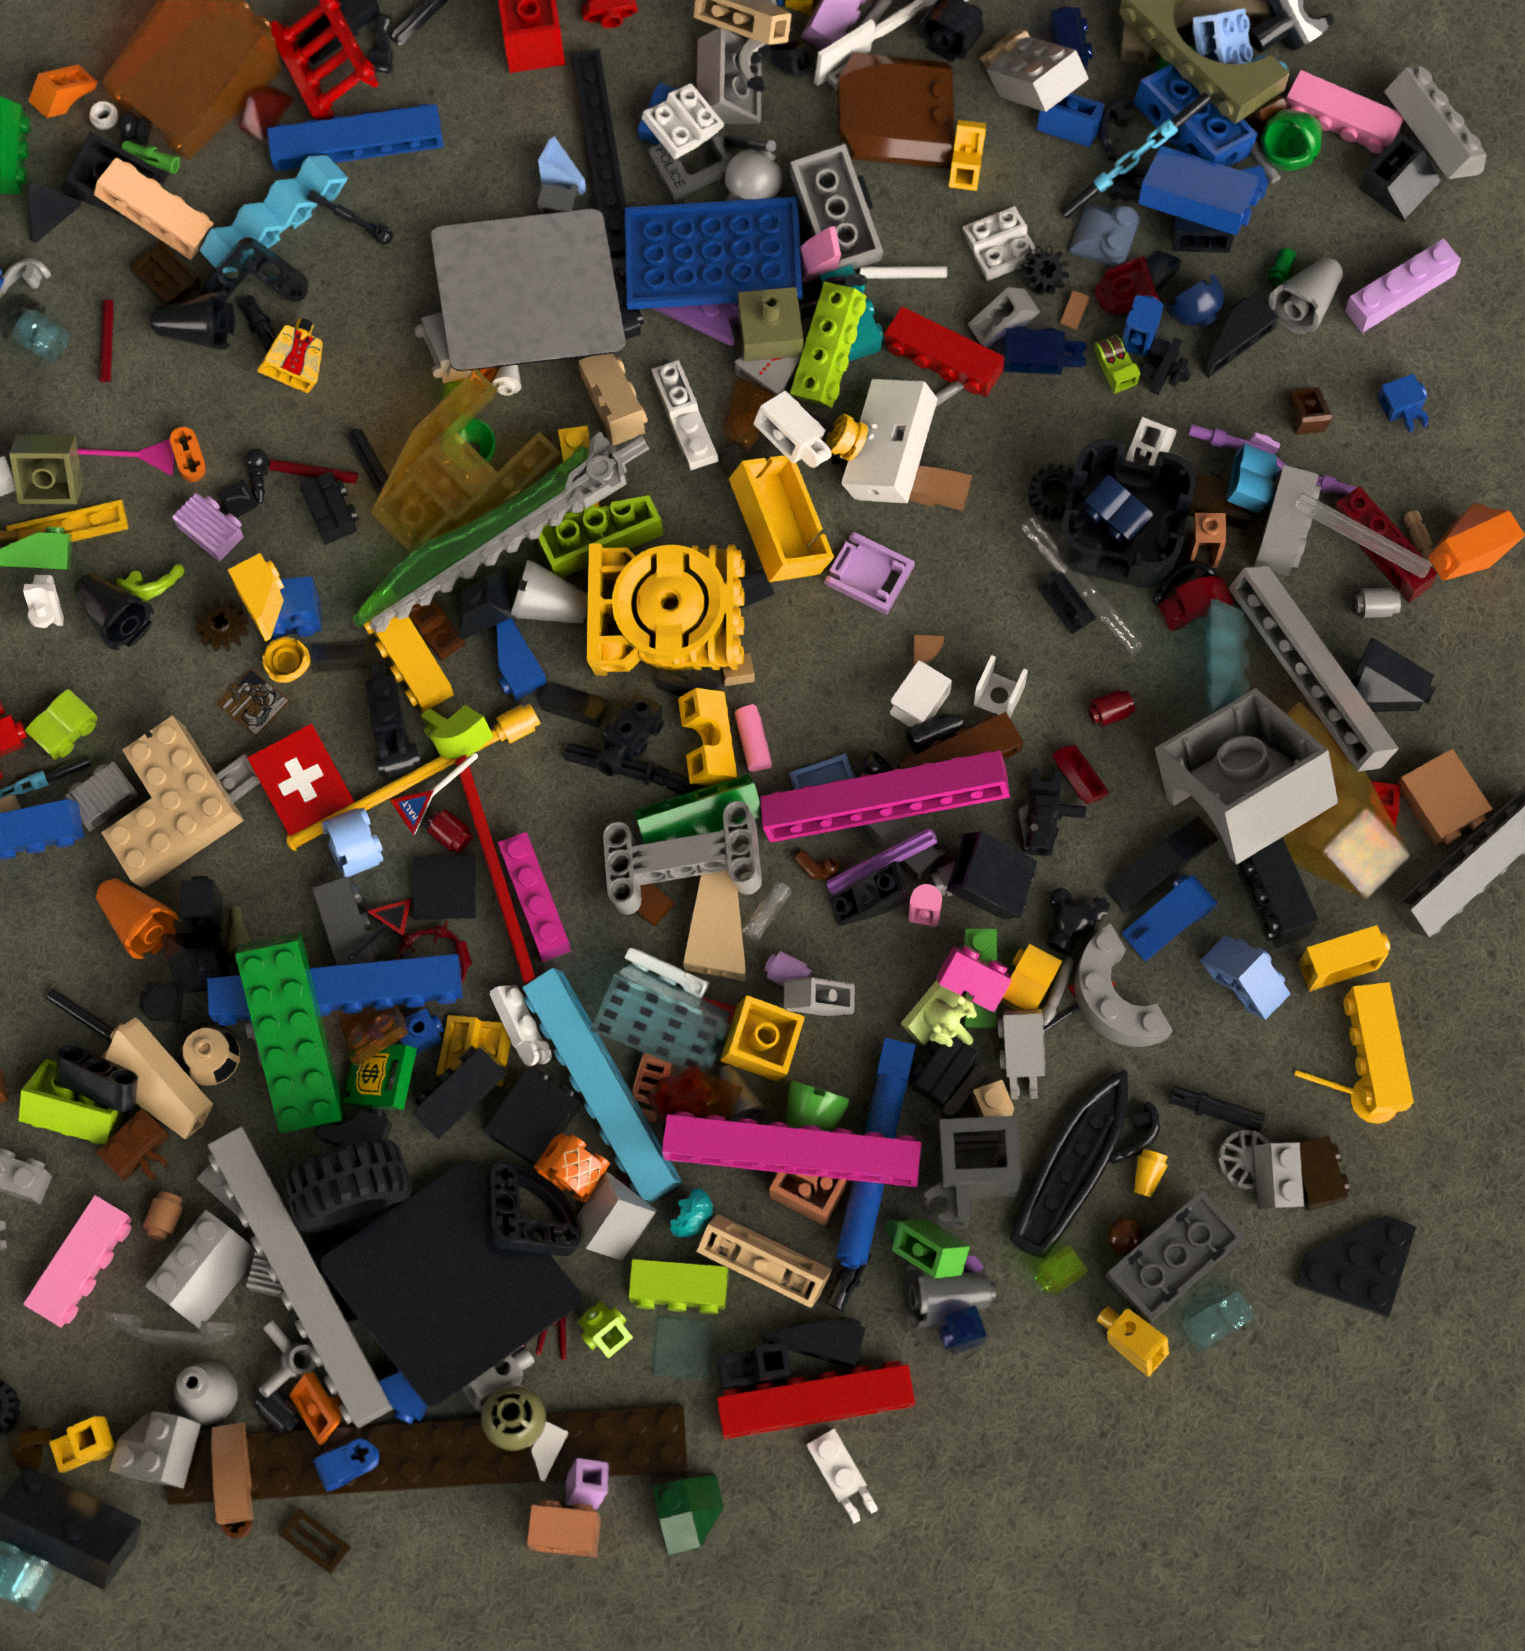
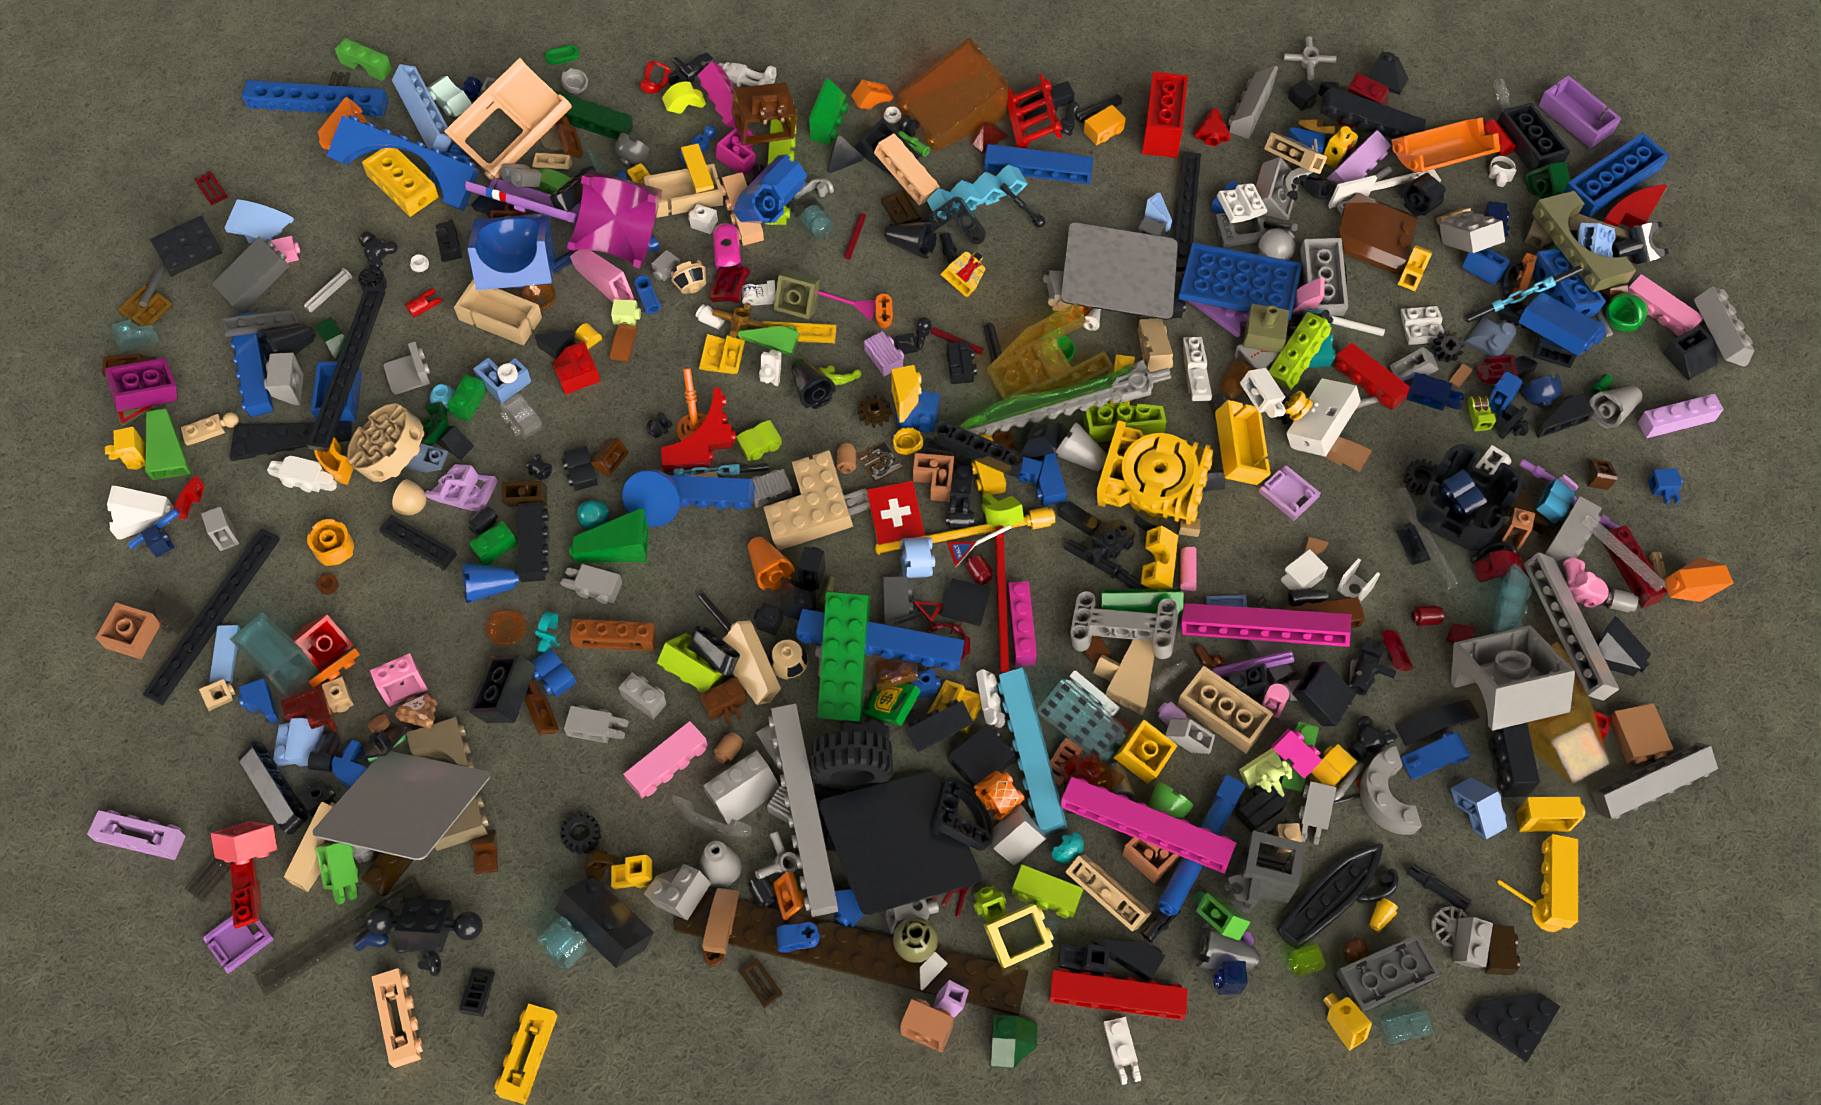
camera: 15 degrees right, 10 degrees down
(202, 714) = (846, 458): none -> medium nougat brick
(343, 696) = (937, 471): none -> nougat brick
(404, 655) = (984, 455): none -> black beam
(439, 42) = (1104, 125): none -> light orange brick
(477, 653) = (1030, 471): none -> blue brick
(616, 1360) = (997, 942): none -> light yellow window
(674, 926) = (1106, 668): none -> tan slope
(858, 940) = (1224, 709): none -> tan slope
(1130, 122) = (1524, 275): none -> dark orange hinge
(1163, 722) = (1459, 633): none -> dark red slope
(1321, 598) = (1584, 586): none -> bright pink head

